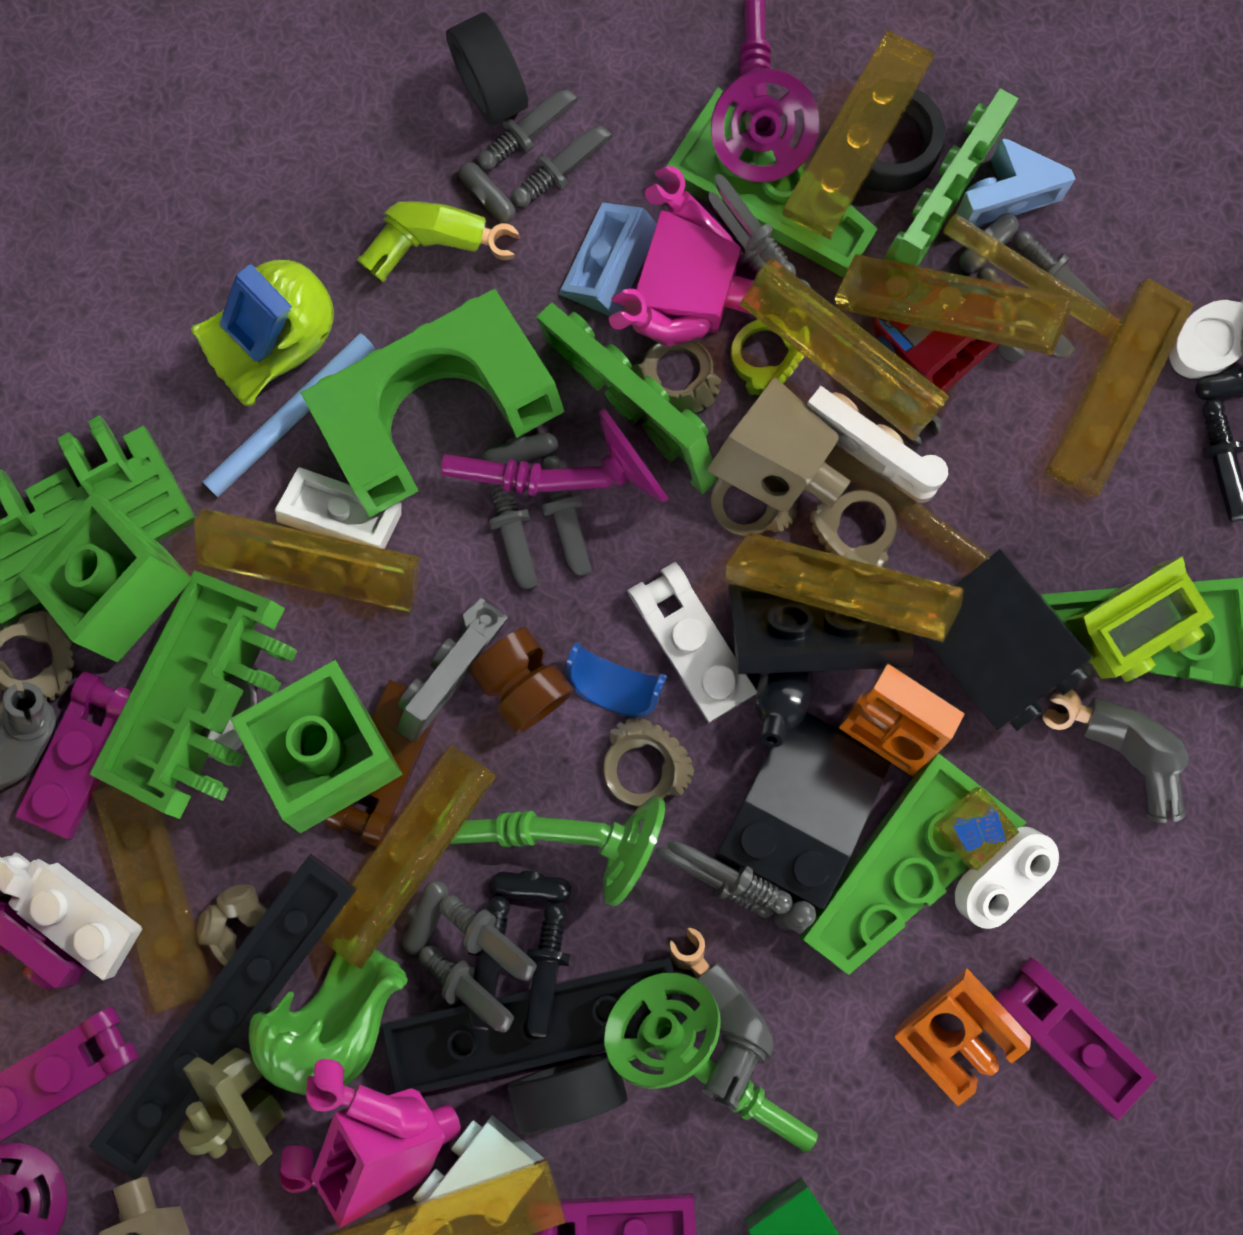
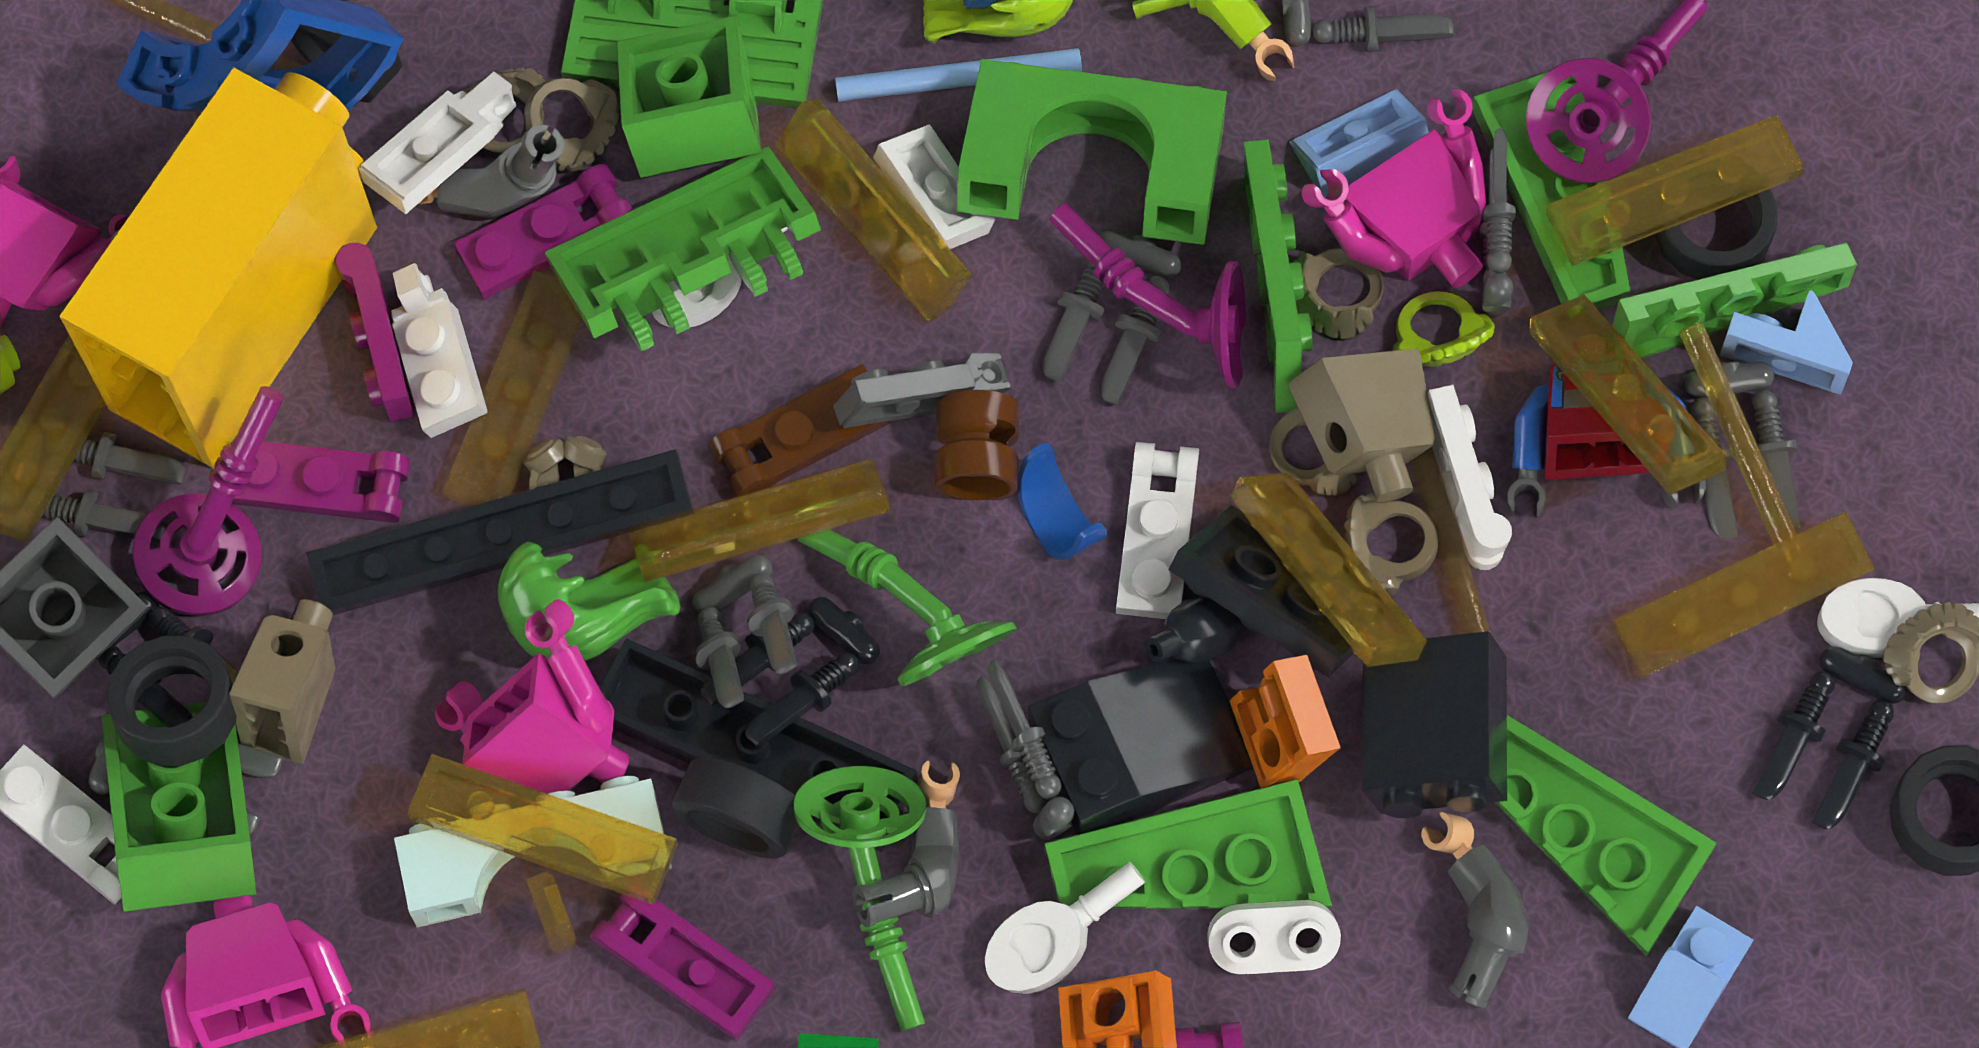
camera: 40 degrees right, 10 degrees down
(224, 1113) = (437, 606): olive hips -> none
(315, 747) = (755, 363): bright green slope -> none
(675, 771) = (1055, 627): dark tan piece -> none
(843, 349) = (1496, 366): clear yellow tile -> none
(857, 1004) = (1049, 938): none -> white piece
(976, 828) = (1277, 867): clear yellow tile -> none
(1142, 621) = (1575, 795): lime window -> none

